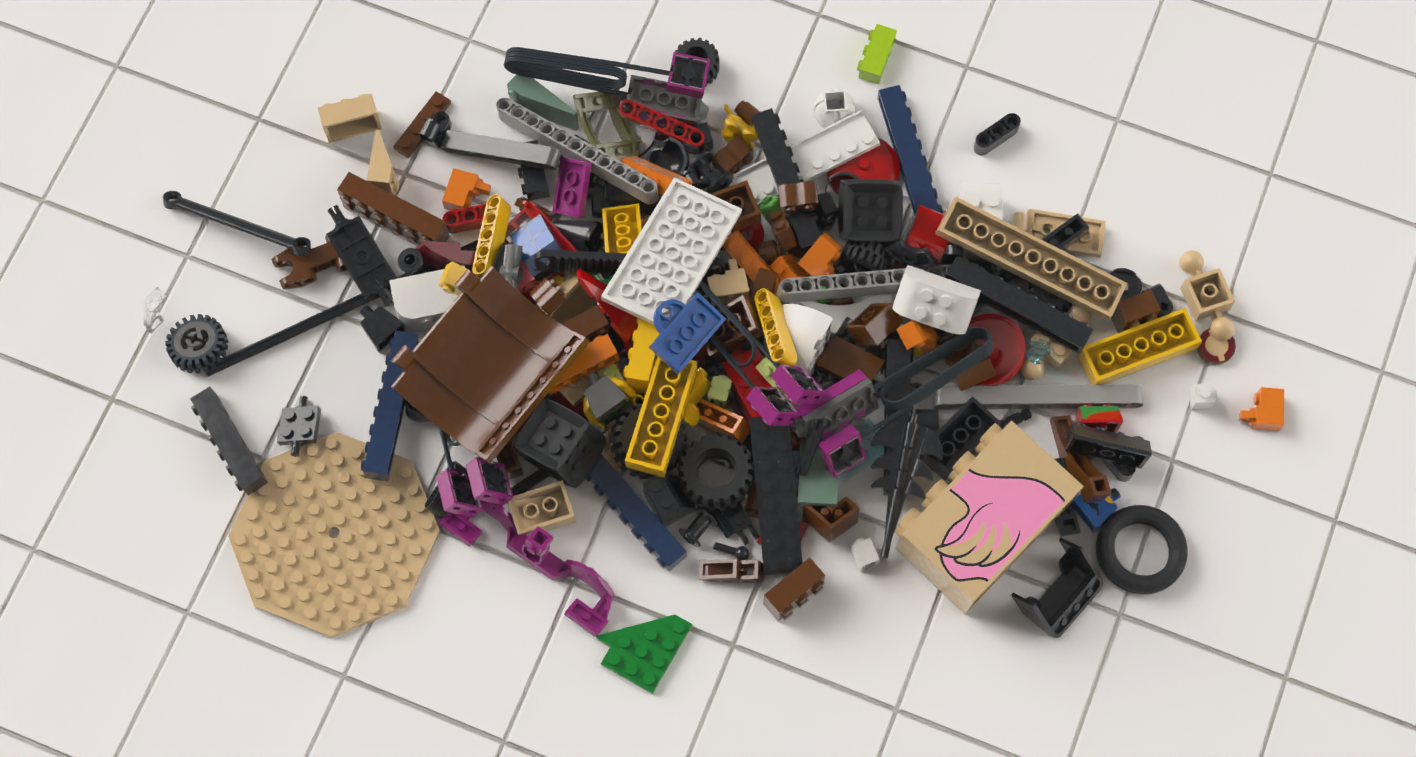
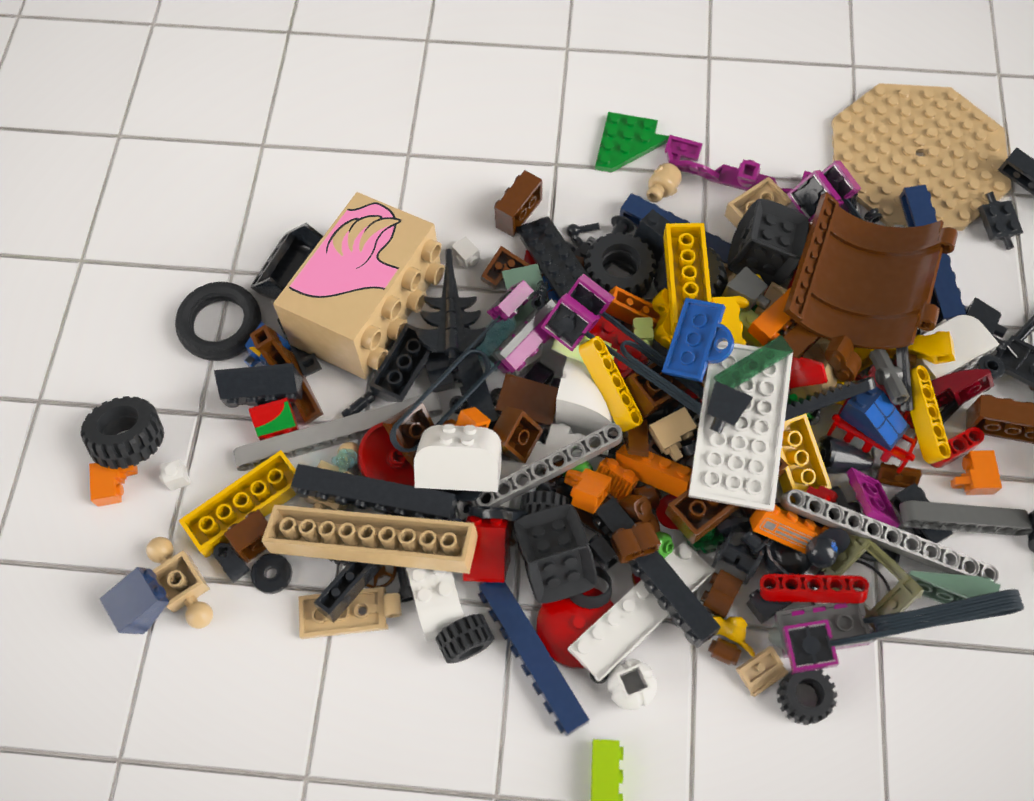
camera: 165 degrees right, 5 degrees down
(424, 470) = (873, 215): none -> black bush
(617, 198) = (823, 492): none -> red slope
(627, 575) = (663, 182): none -> tan piece
(635, 153) = (826, 547): none -> black cap
(642, 293) = (755, 363): none -> clear green tile
(683, 260) = (726, 406): none -> black torso
(723, 92) = (762, 671): none -> tan plate
(731, 571) = (577, 211): reddish brown slope -> none
(963, 169) = (464, 638): none -> black tyre
(1001, 127) = (442, 699): black beam -> none
(1215, 351) = (169, 528): tile -> none
(1247, 277) = (135, 601): none -> slope
(1275, 442) = (115, 450): none -> black tyre

